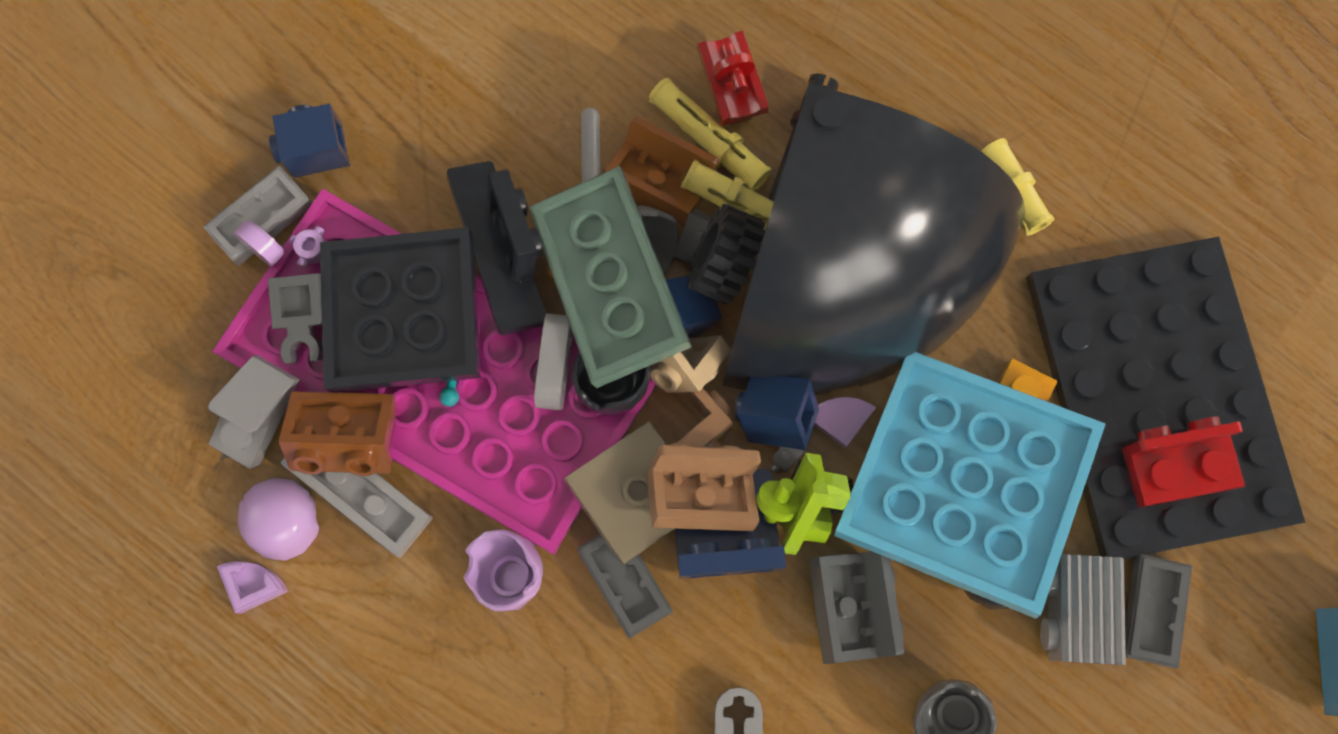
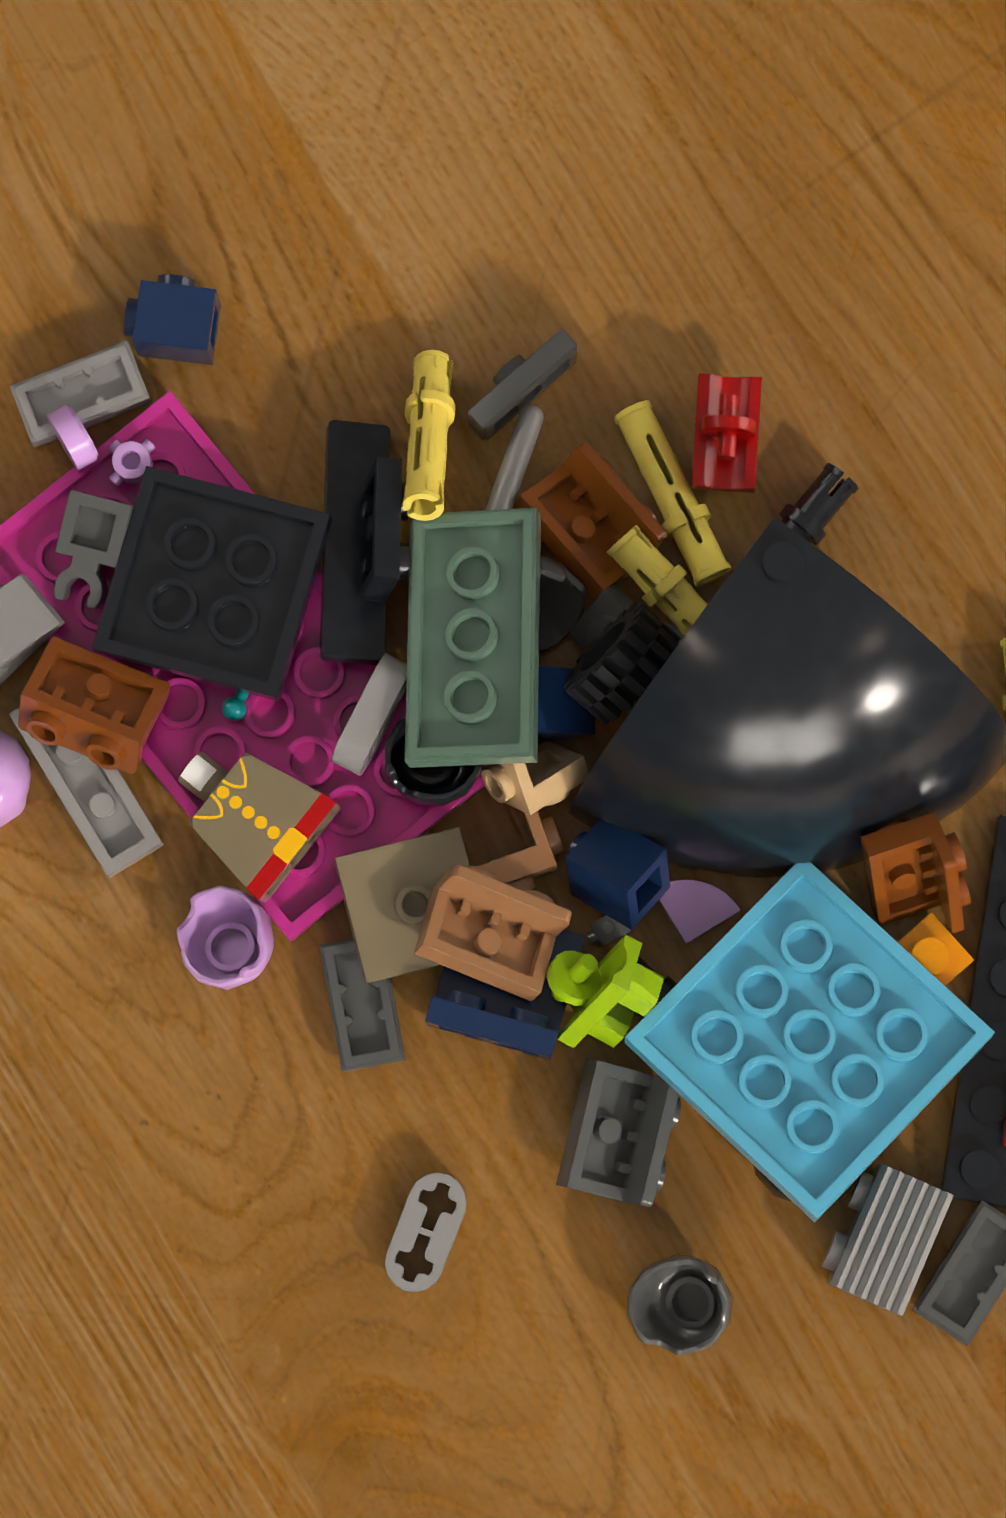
camera: 25 degrees right, 5 degrees up
(494, 470) = (256, 818): none -> dark tan torso
(517, 138) = (429, 414): none -> light yellow pin
(574, 96) = (521, 383): none -> dark grey plate
(996, 326) = (914, 870): none -> dark orange bracket

